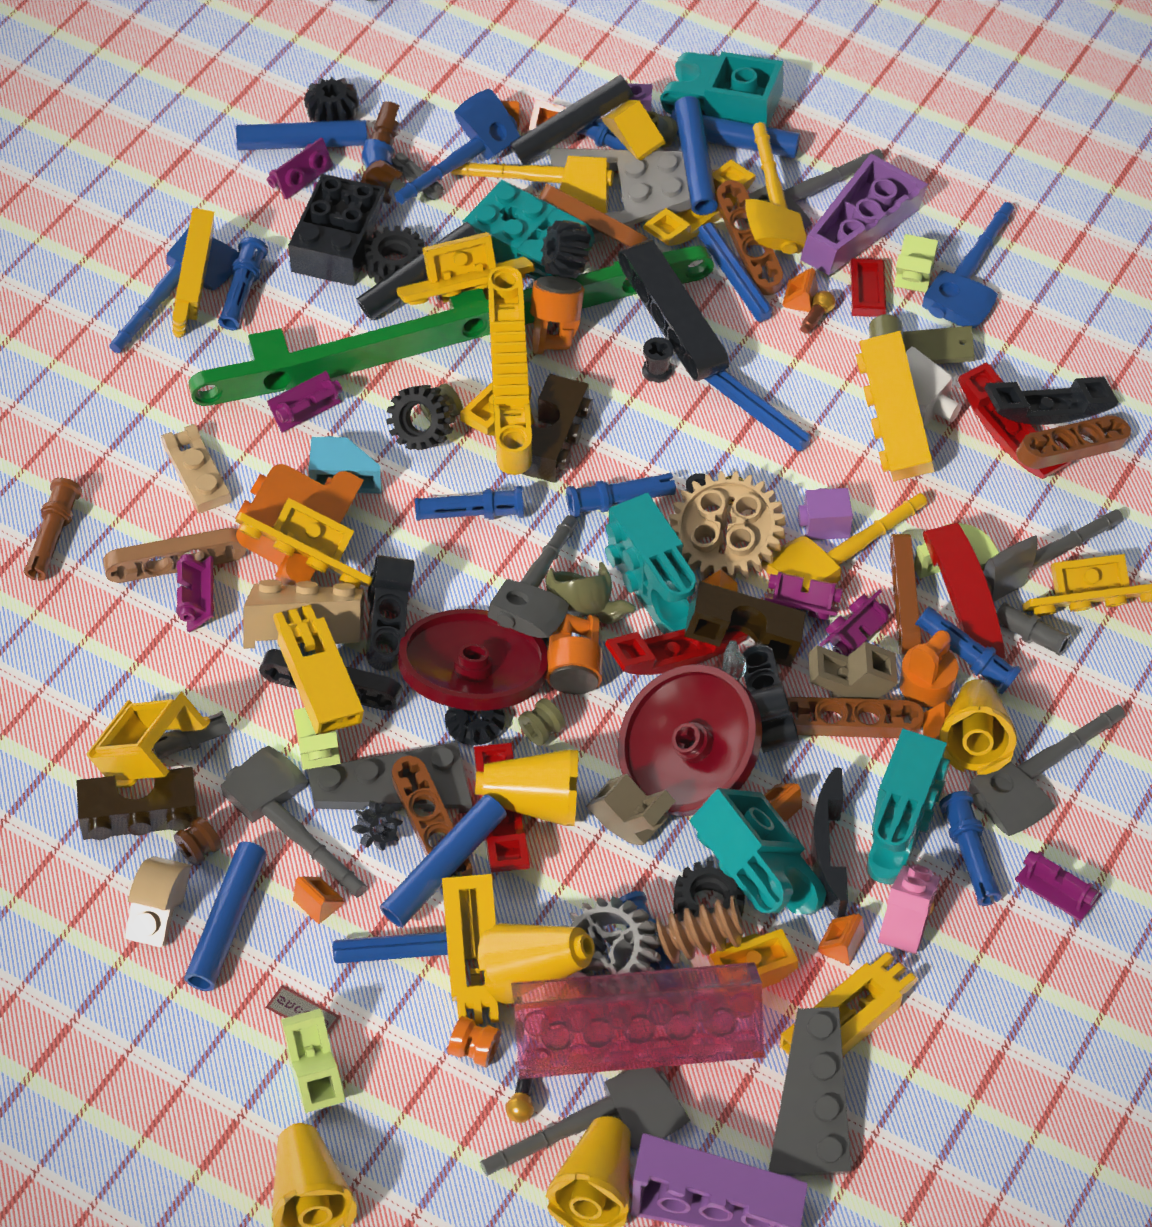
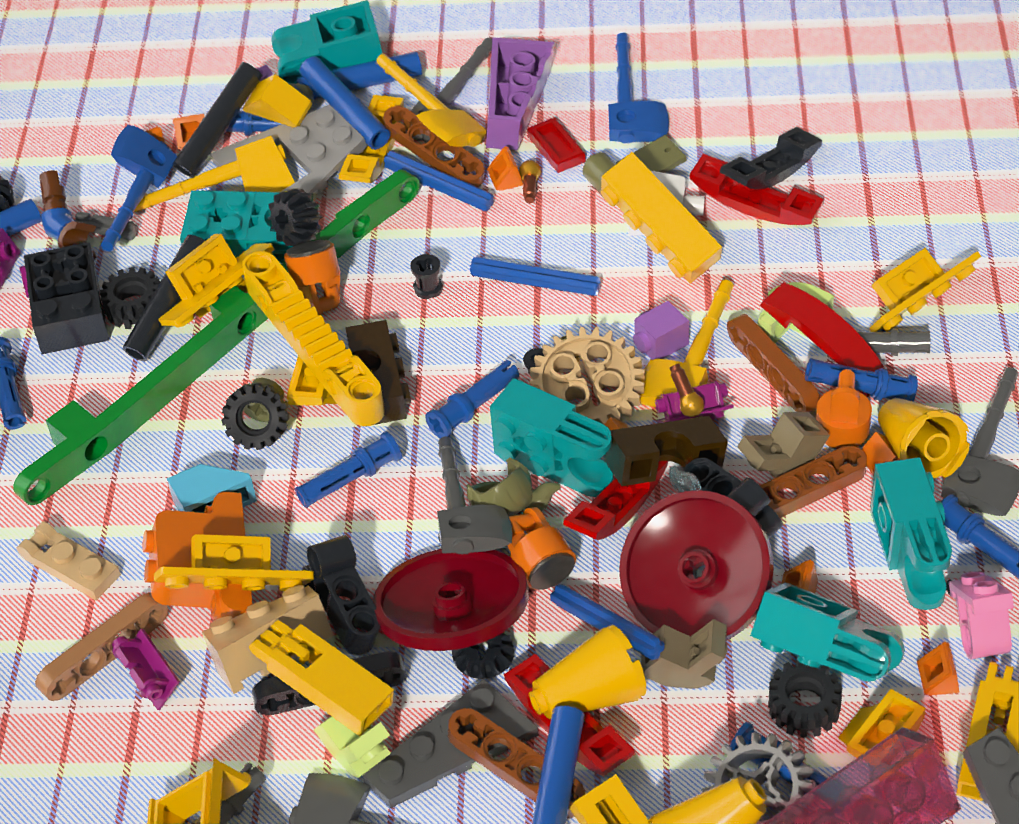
camera: 25 degrees left, 5 degrees down
(305, 401) = (134, 453): magenta hinge -> none
(370, 818) = (466, 790): black gear -> none
(541, 722) = (547, 622): olive wheel -> none
(585, 743) = (600, 617): none -> blue axle
(591, 216) = (319, 186): dark orange beam -> none
(673, 310) = (417, 227): black beam -> none
(701, 931) = (830, 723): medium nougat piece -> none
(799, 592) = (690, 402): none -> piece
(833, 877) = (860, 596): black slope -> none
(865, 614) = (751, 396): magenta hinge -> none
(916, 263) = (585, 107): yellowish green brick -> none
(1011, 567) = (848, 292): dark grey piece -> none
(1070, 435) = (816, 183): dark orange beam -> none

